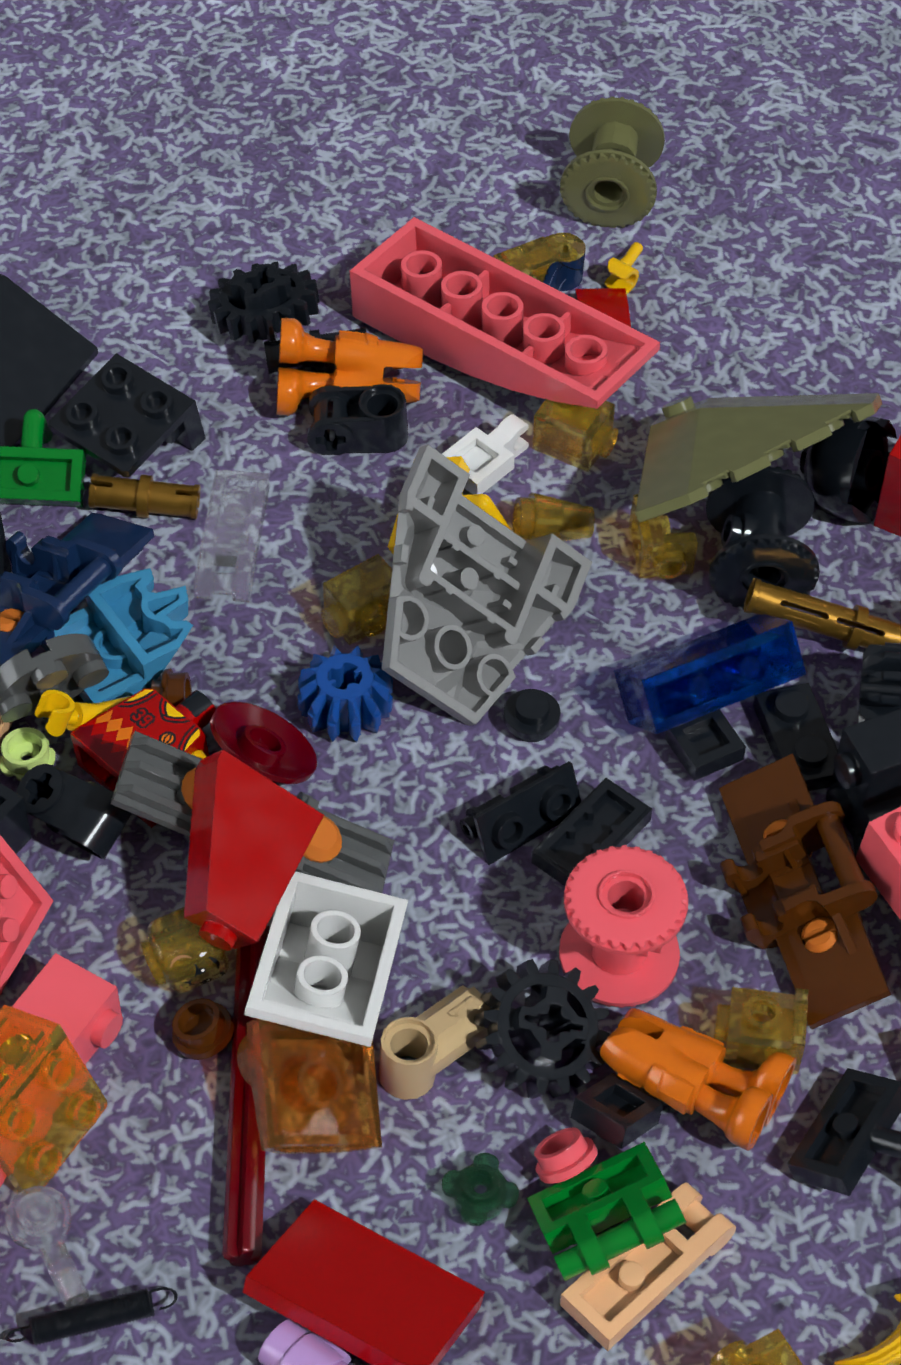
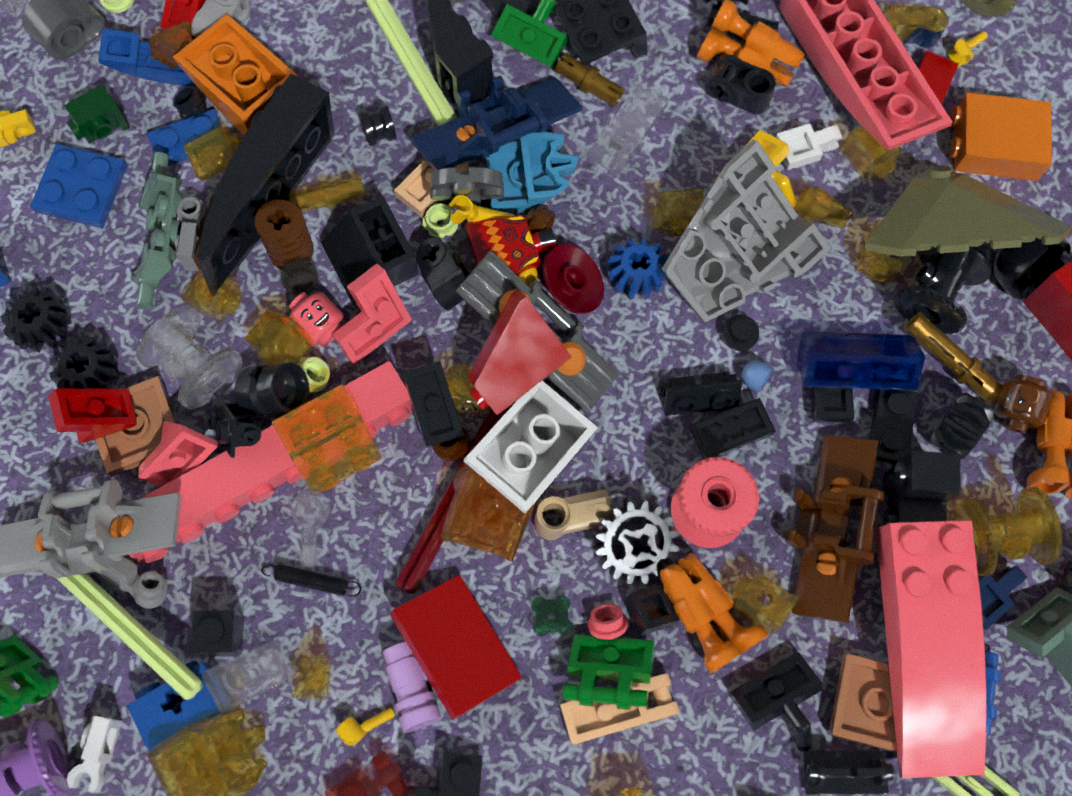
camera: 25 degrees right, 20 degrees up
(153, 978) = (433, 404): none -> black plate
(585, 754) = (756, 374): none -> medium blue hinge
(731, 344) = (1002, 136): none -> orange brick

